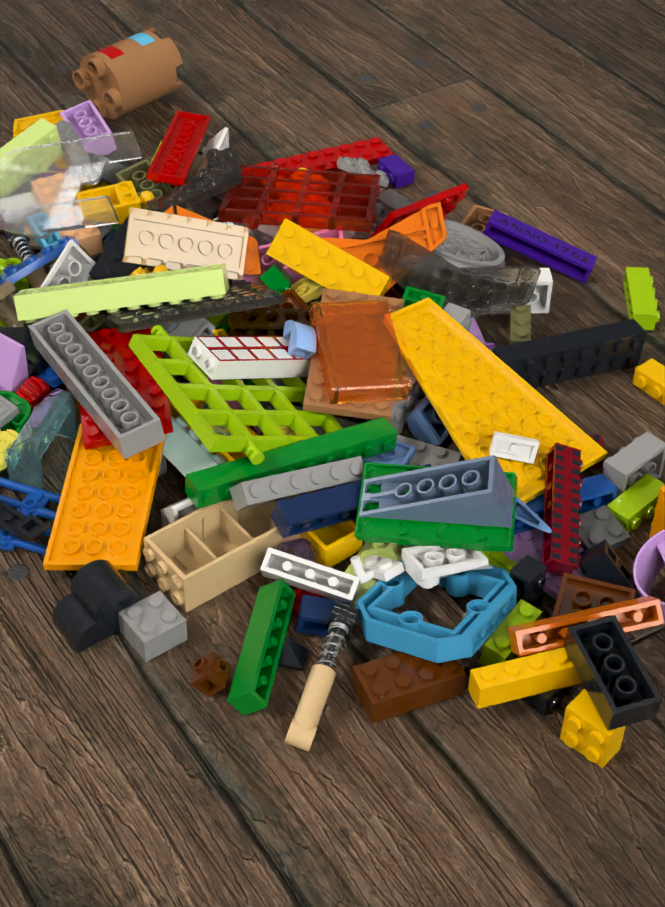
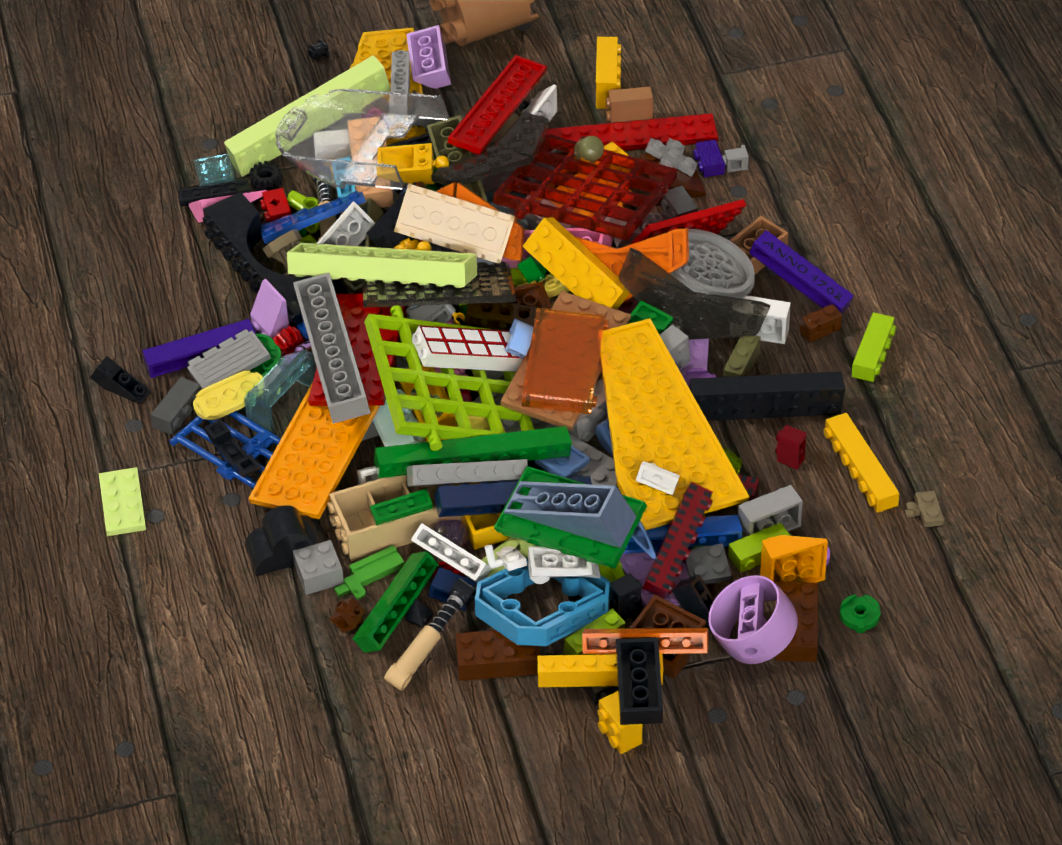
camera: 20 degrees right, 5 degrees up
(213, 618) = (370, 570): none -> bright green piece
(235, 535) = (401, 507): none -> green plate
(268, 117) = (607, 69): none -> yellow brick
(291, 164) = (589, 148): none -> olive helmet
(302, 137) = (629, 104): none -> medium nougat brick
(423, 167) = (736, 159): none -> light grey brick
(577, 286) = (820, 323): none -> reddish brown brick
(616, 399) = (791, 446): none -> dark red brick

